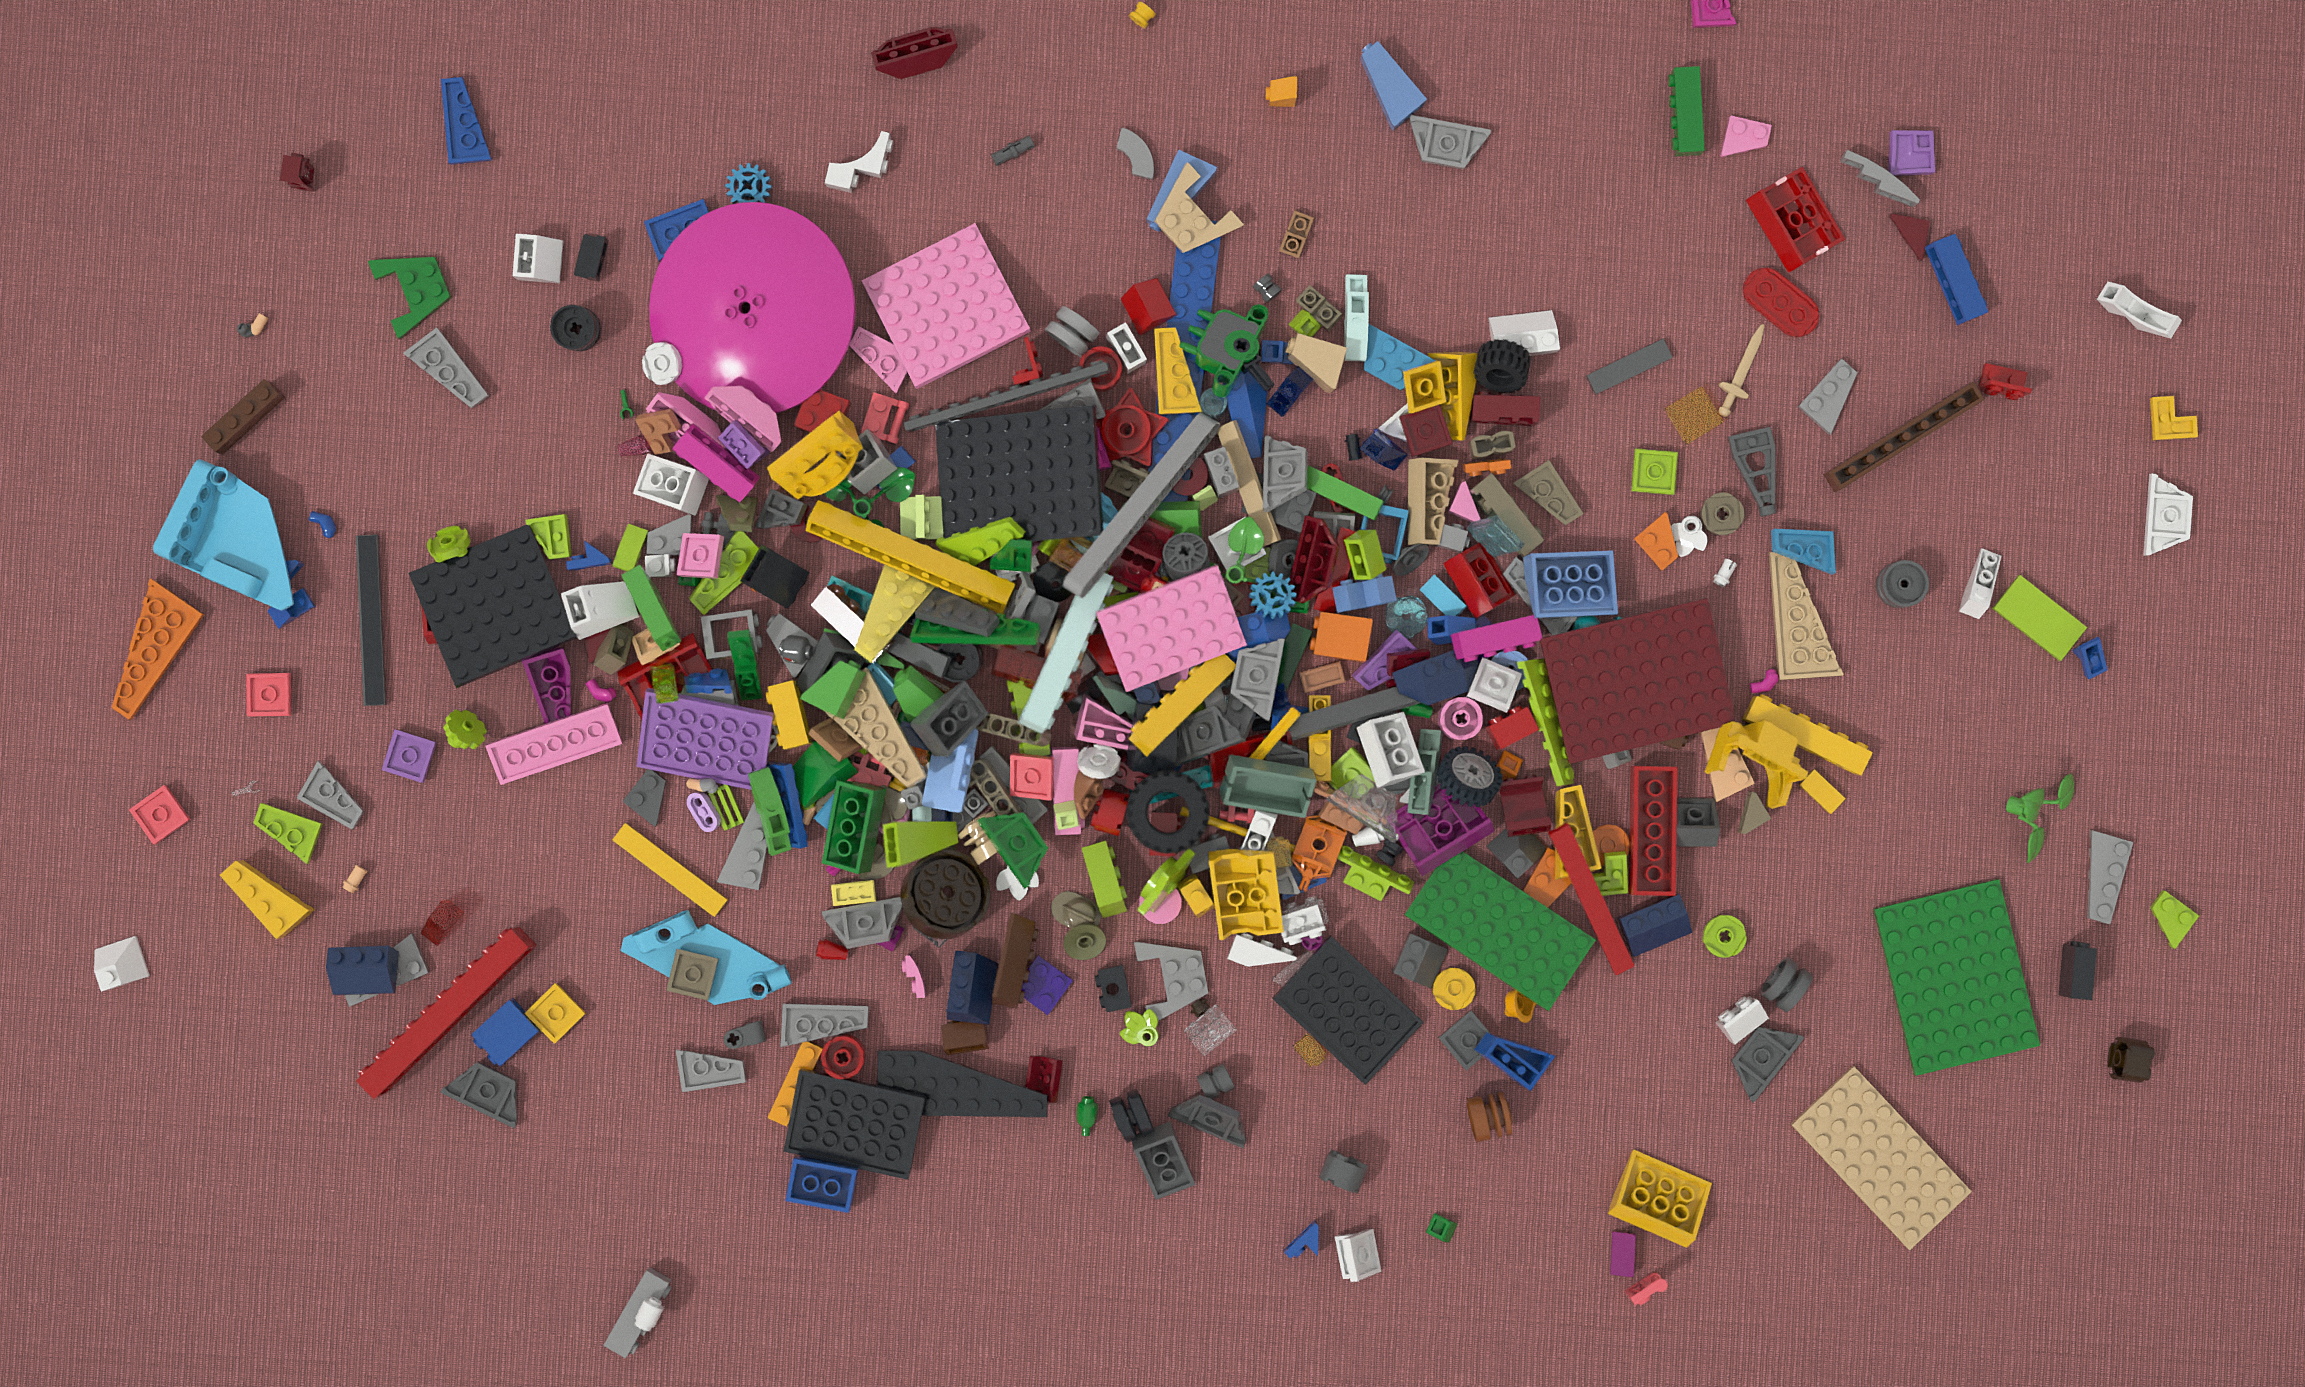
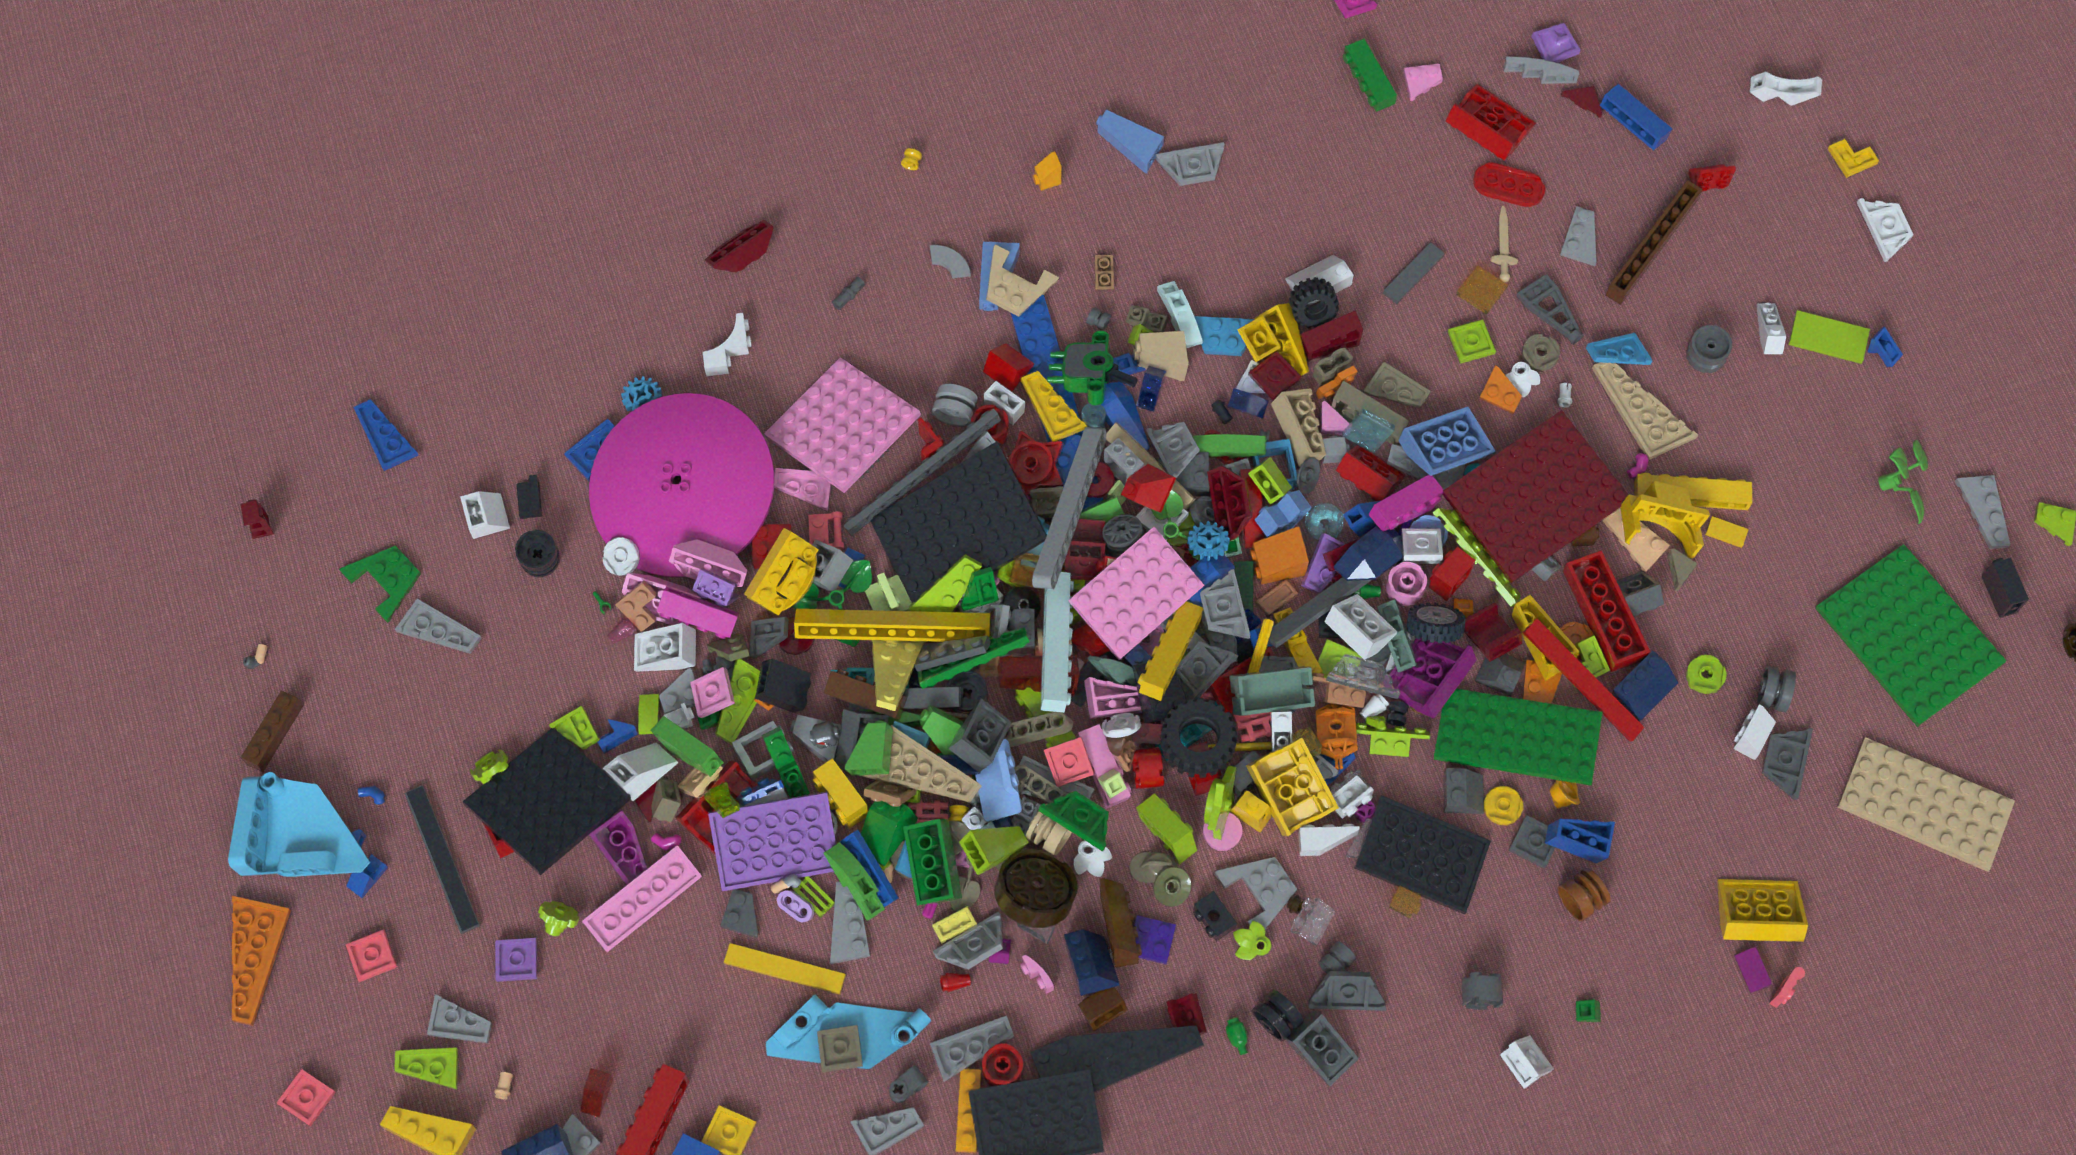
camera: 20 degrees left, 20 degrees down
(247, 789) = (379, 1045): clear hand -> none
(1234, 514) = (1149, 487): none -> red slope
(1307, 1237) = (1478, 1063): blue slope -> none
(1364, 853) = (1376, 721): none -> lime tile
(1442, 597) = (1346, 496): medium azure slope -> none

